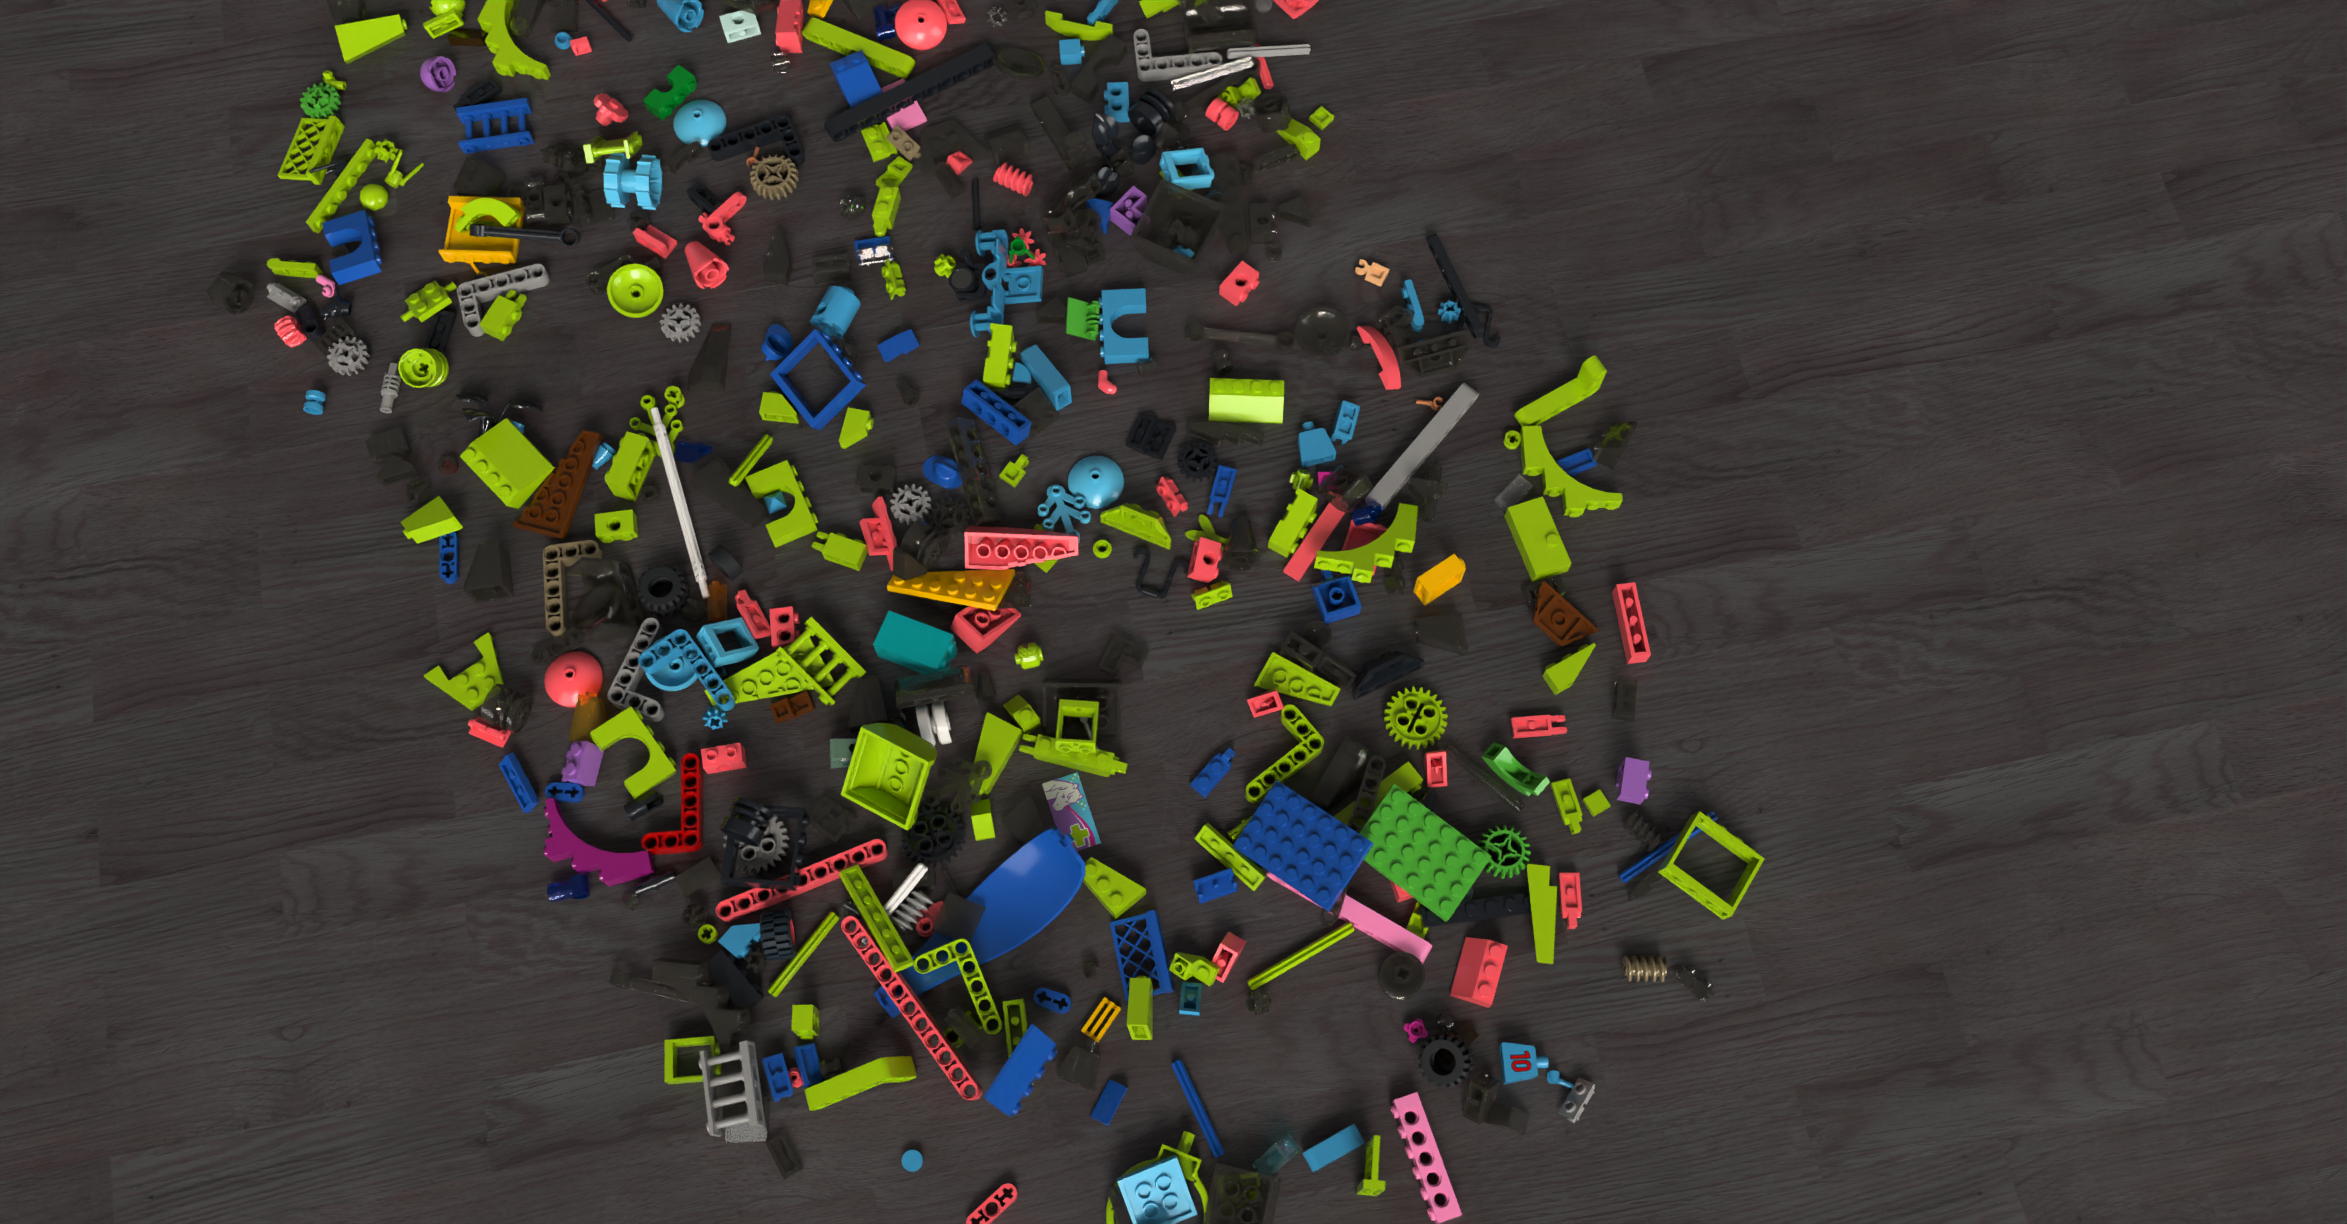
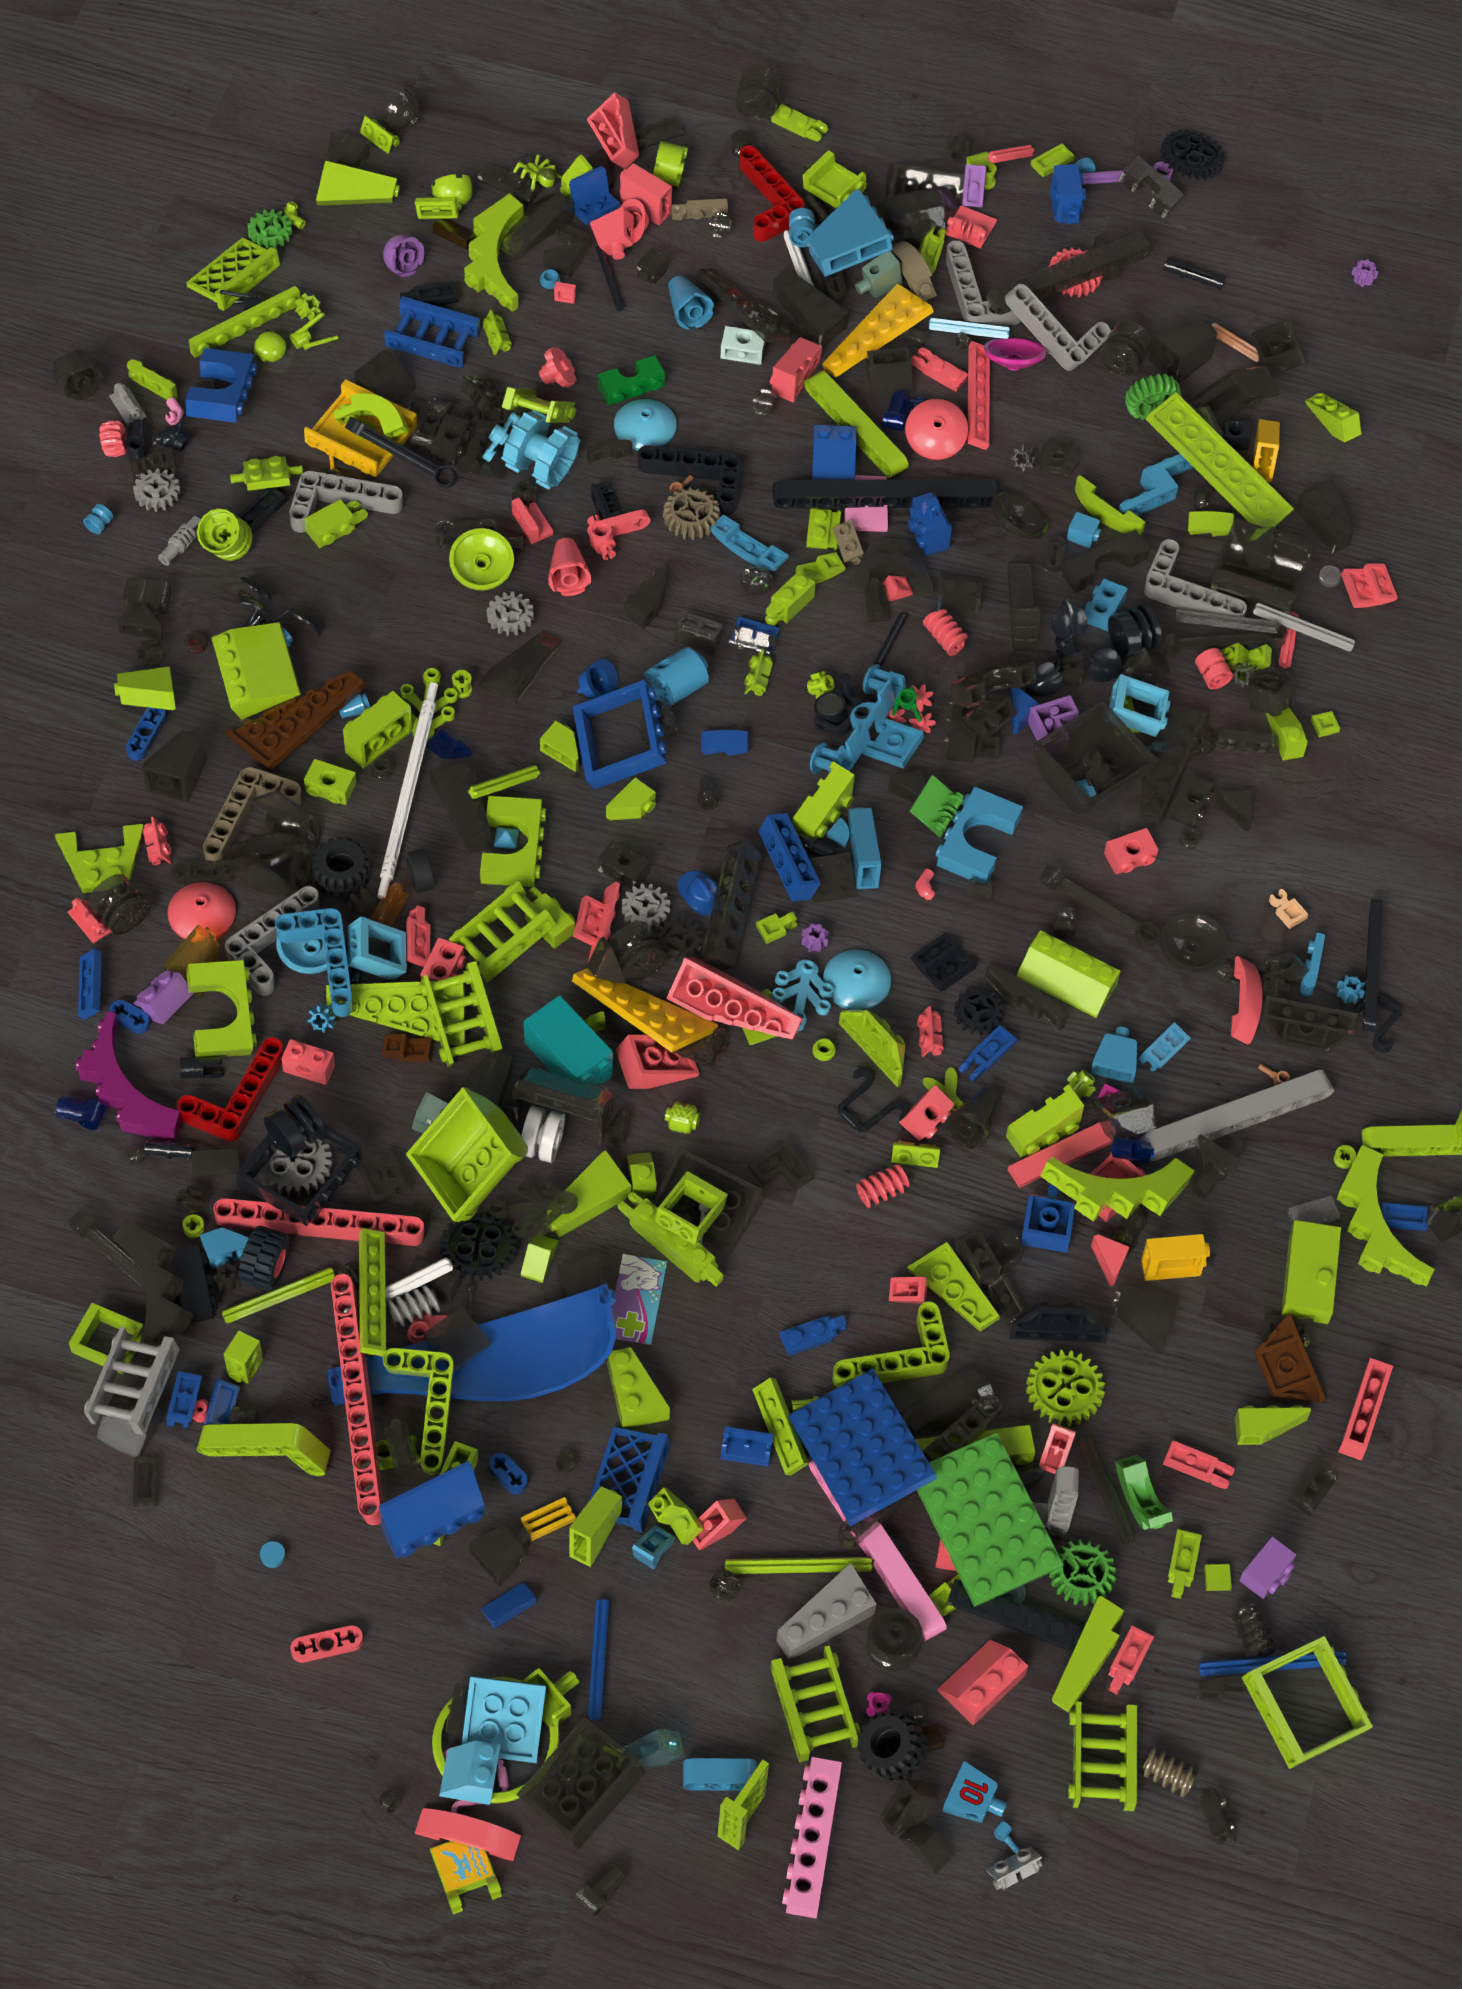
camera: 25 degrees right, 10 degrees down
(503, 635) = (160, 850): none -> coral hinge
(542, 100) = (496, 333): none -> lime hinge
(595, 185) = (499, 435): none -> medium azure plant
(828, 592) = (516, 945): none -> lime fence
(830, 183) = (746, 547): none -> dark azure slope
(923, 614) = (596, 1021): none -> lime tile
(957, 101) = (929, 524): none -> blue hinge
(1048, 470) = (815, 938): none -> medium lavender gear
(1202, 631) = (882, 1184): none -> coral piece
(1346, 976) = (827, 1614): none -> light grey wedge
(1351, 1060) = (790, 1697): none -> lime fence
(1393, 601) = (1110, 1256): none -> coral slope
(1468, 812) = (1062, 1500): none -> light grey beam
(1604, 964) = (1125, 1745): none -> lime fence

